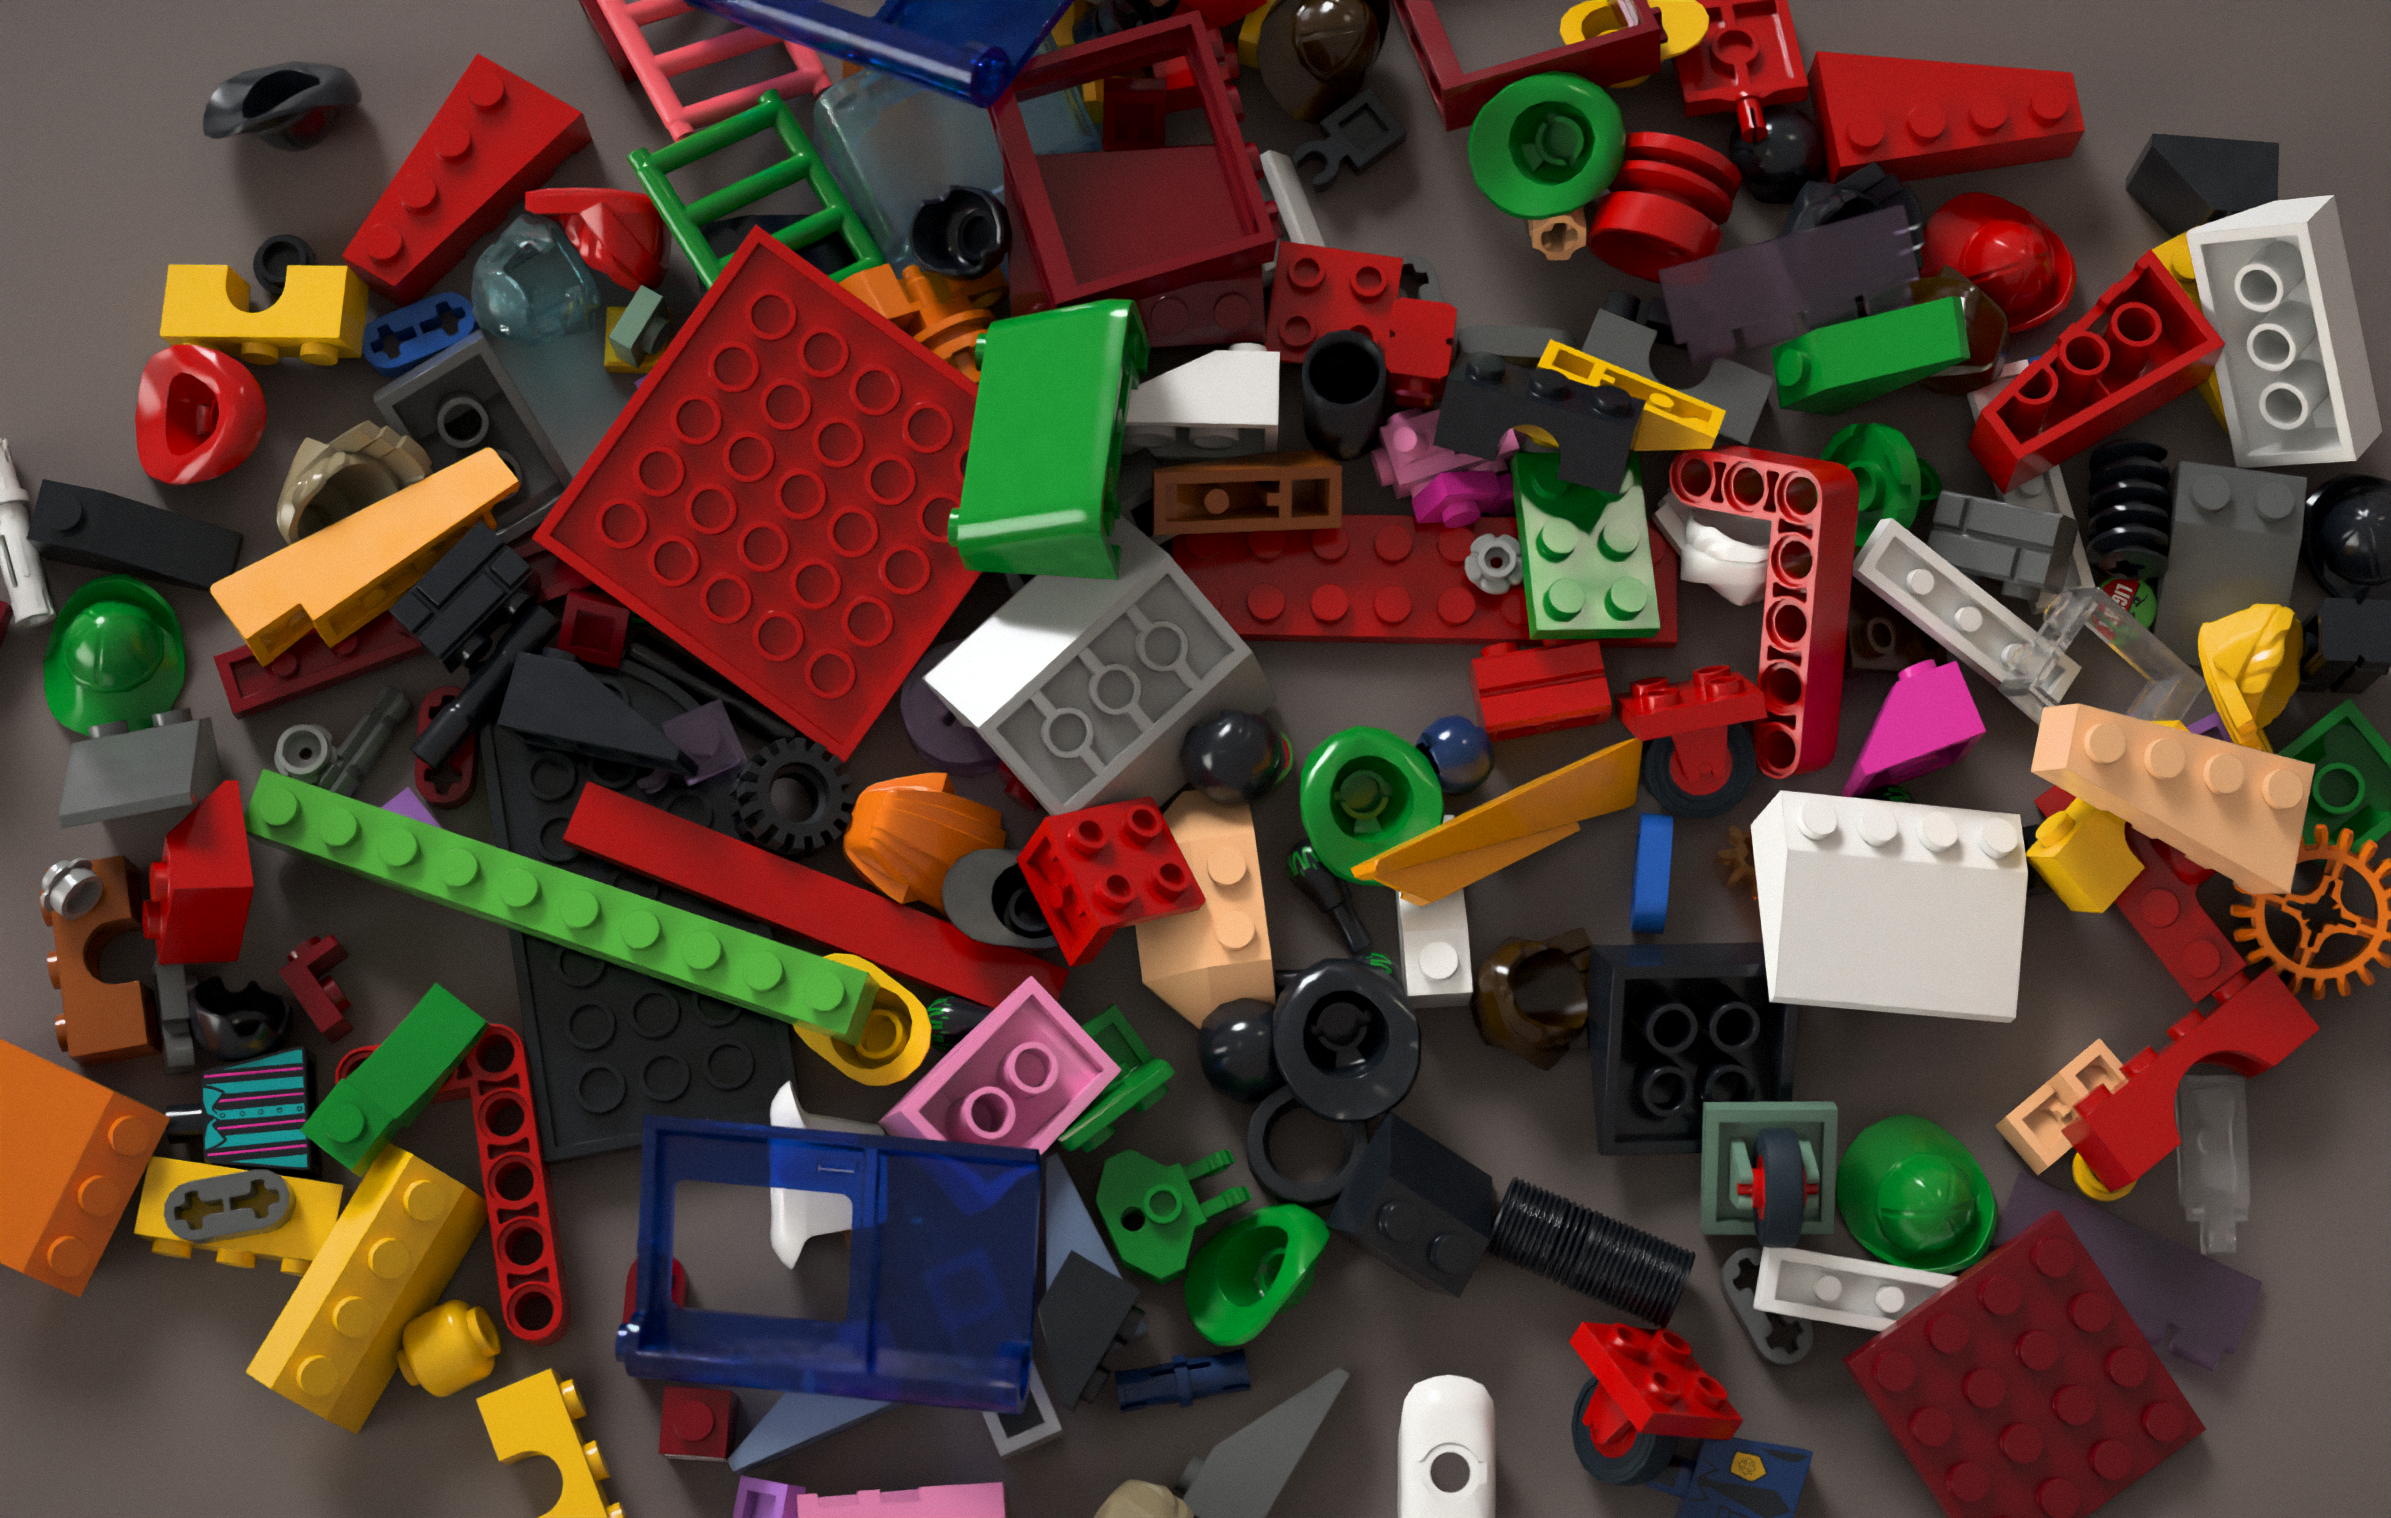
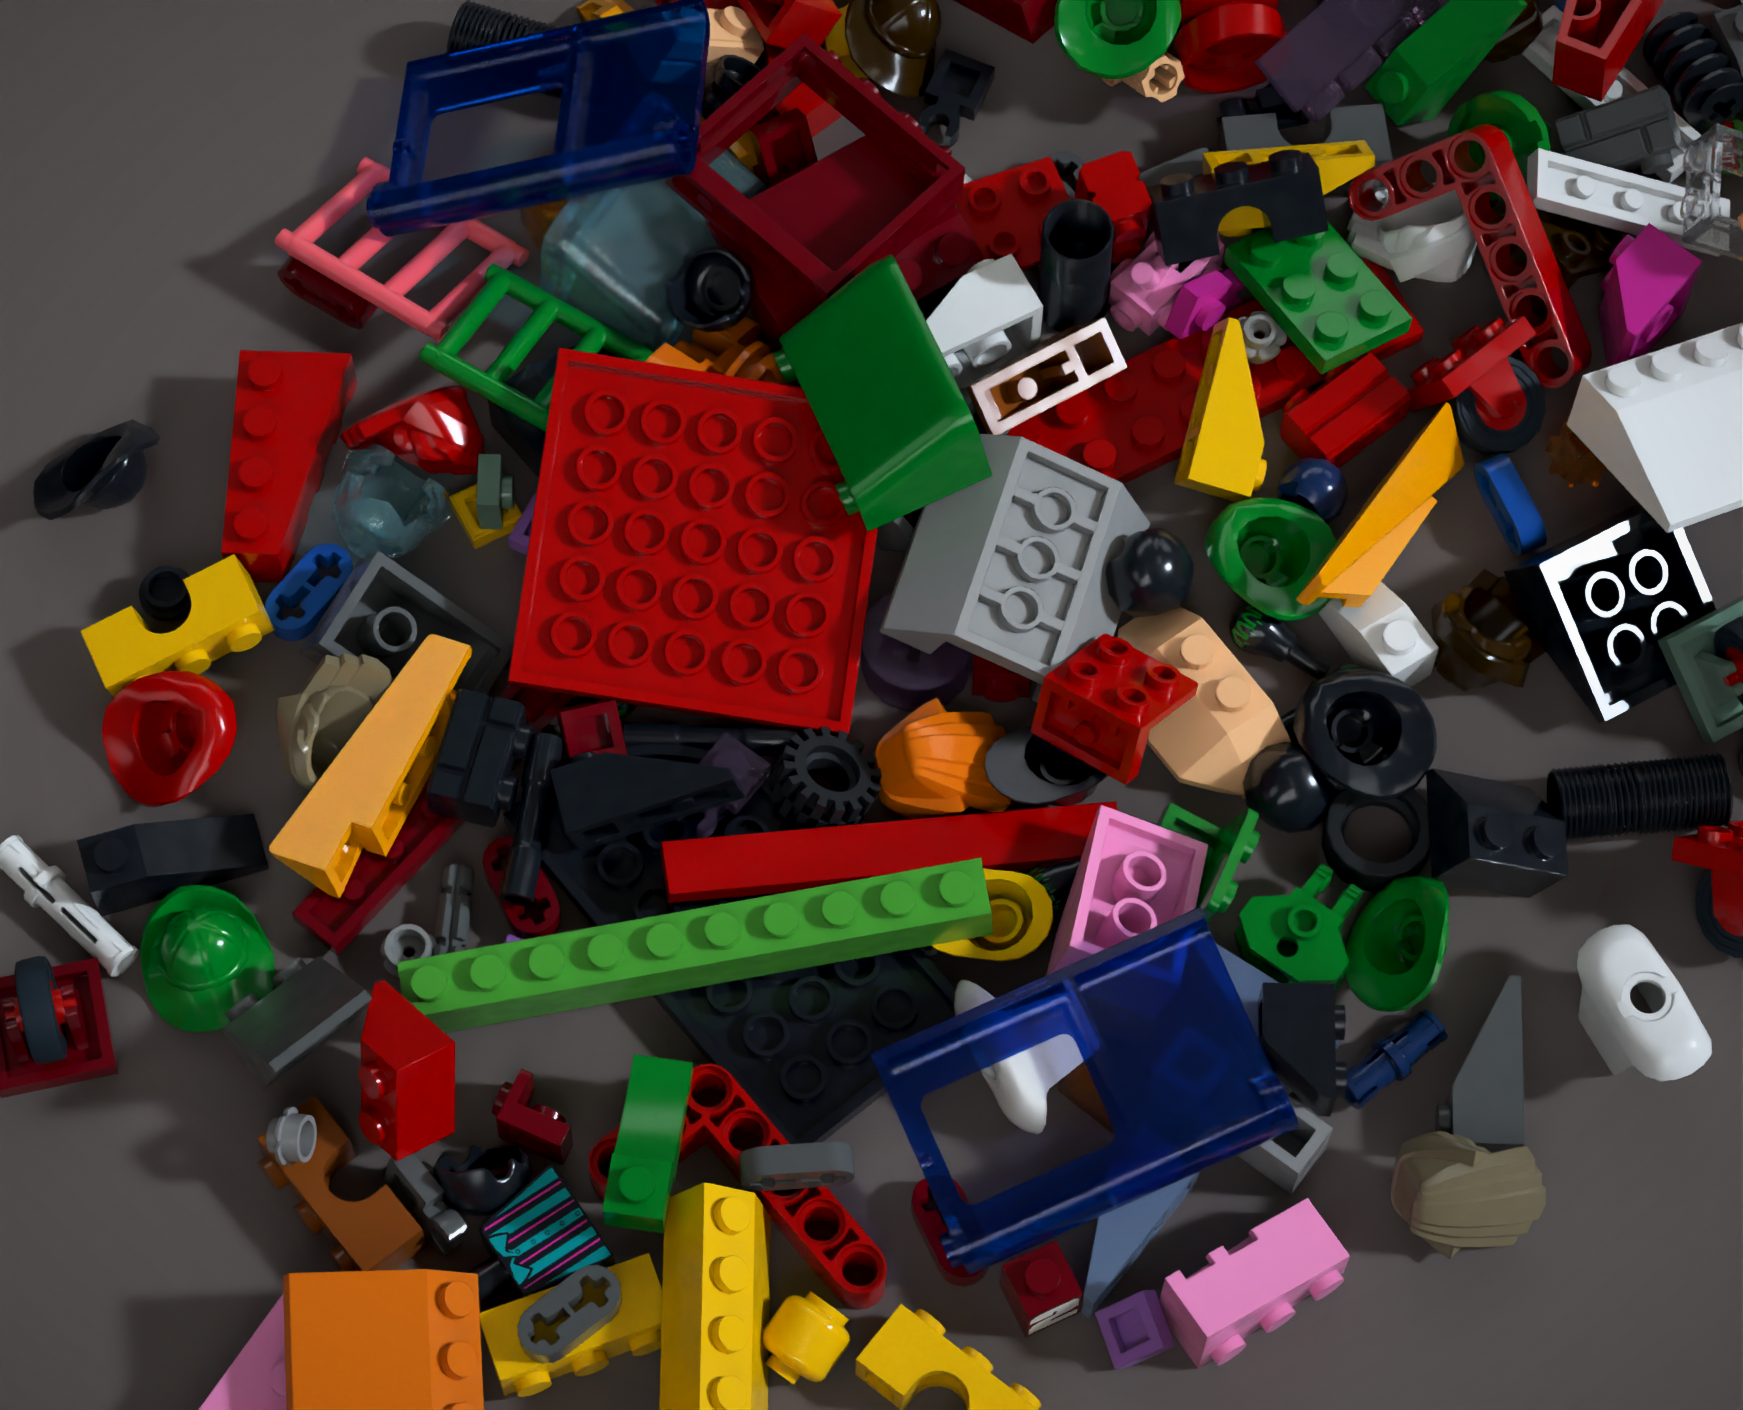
camera: 30 degrees left, 10 degrees down
(523, 1180) = (796, 1166): none -> dark grey beam
(1397, 648) = (1224, 428): none -> yellow slope

